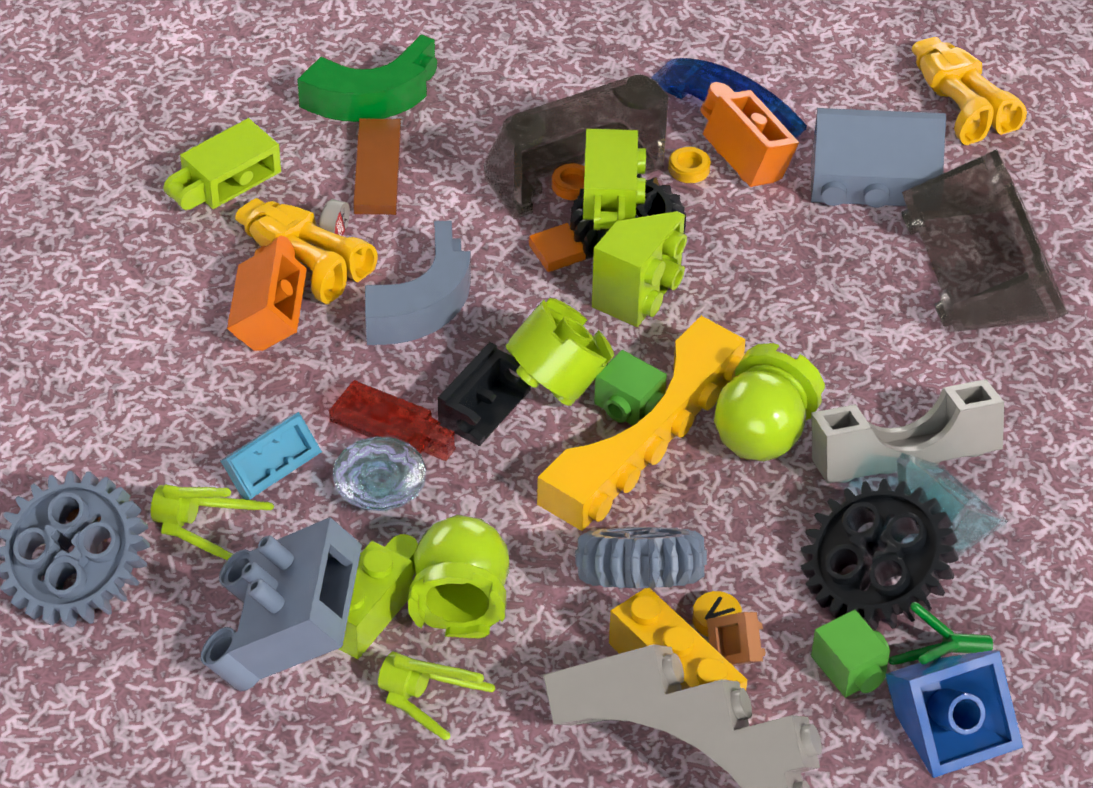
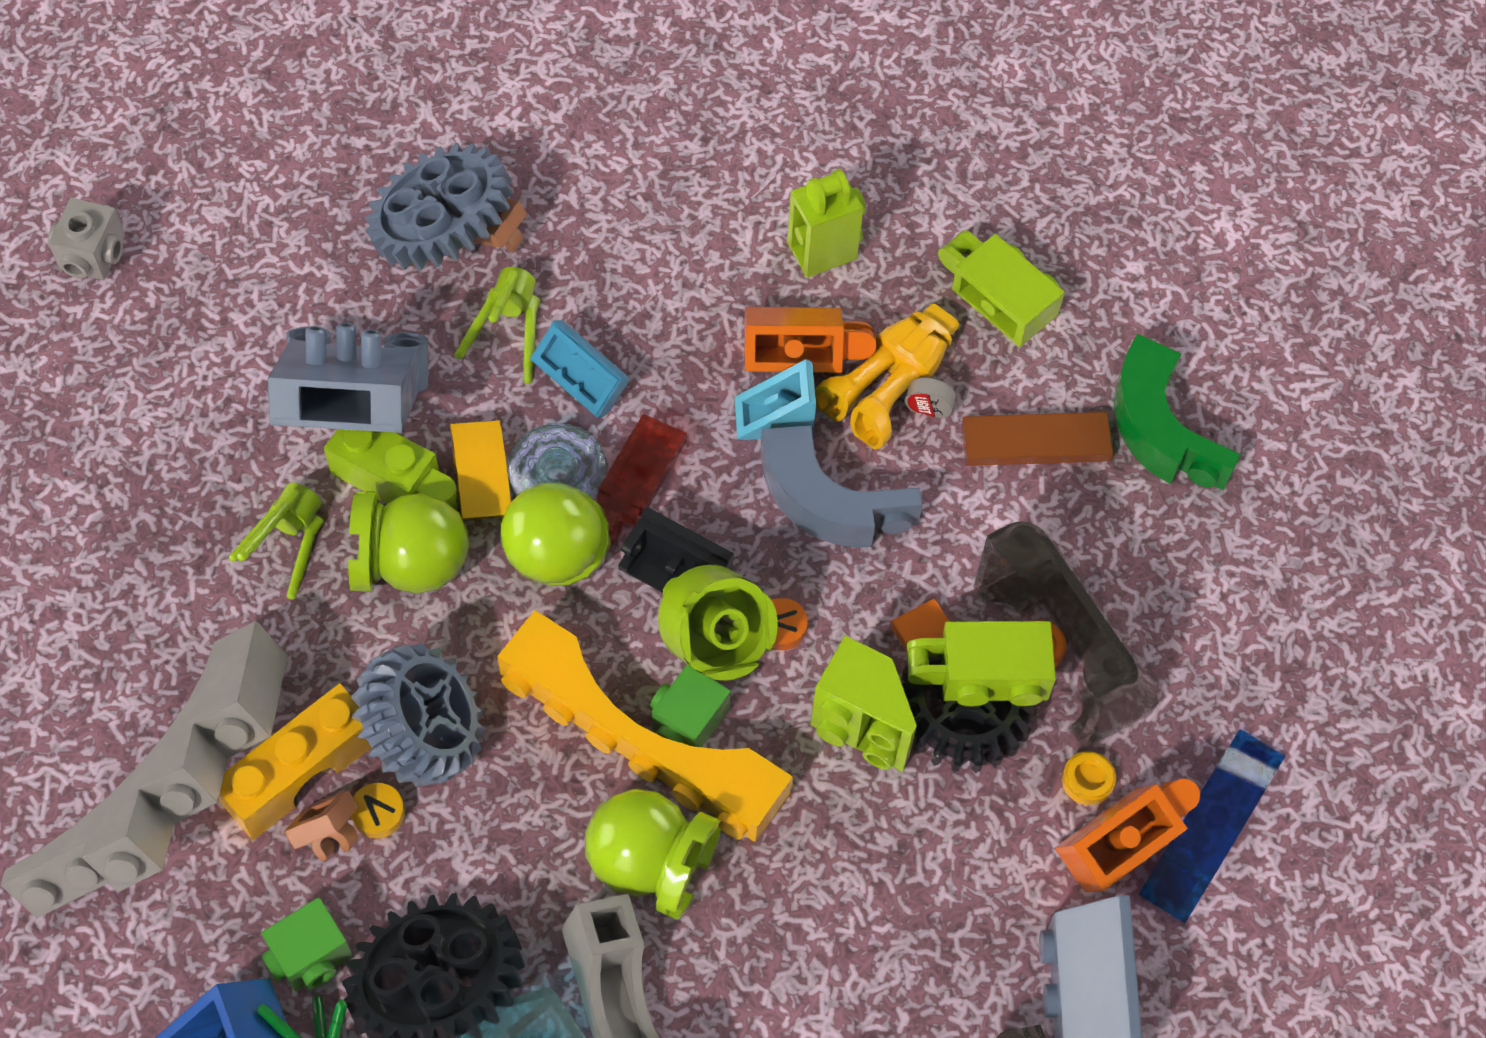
camera: 85 degrees right, 15 degrees up
(151, 258) = (825, 223): none -> lime brick
(332, 313) = (777, 402): none -> medium azure slope
(379, 523) = (480, 469): none -> yellow slope
(464, 457) = (555, 534): none -> lime tile

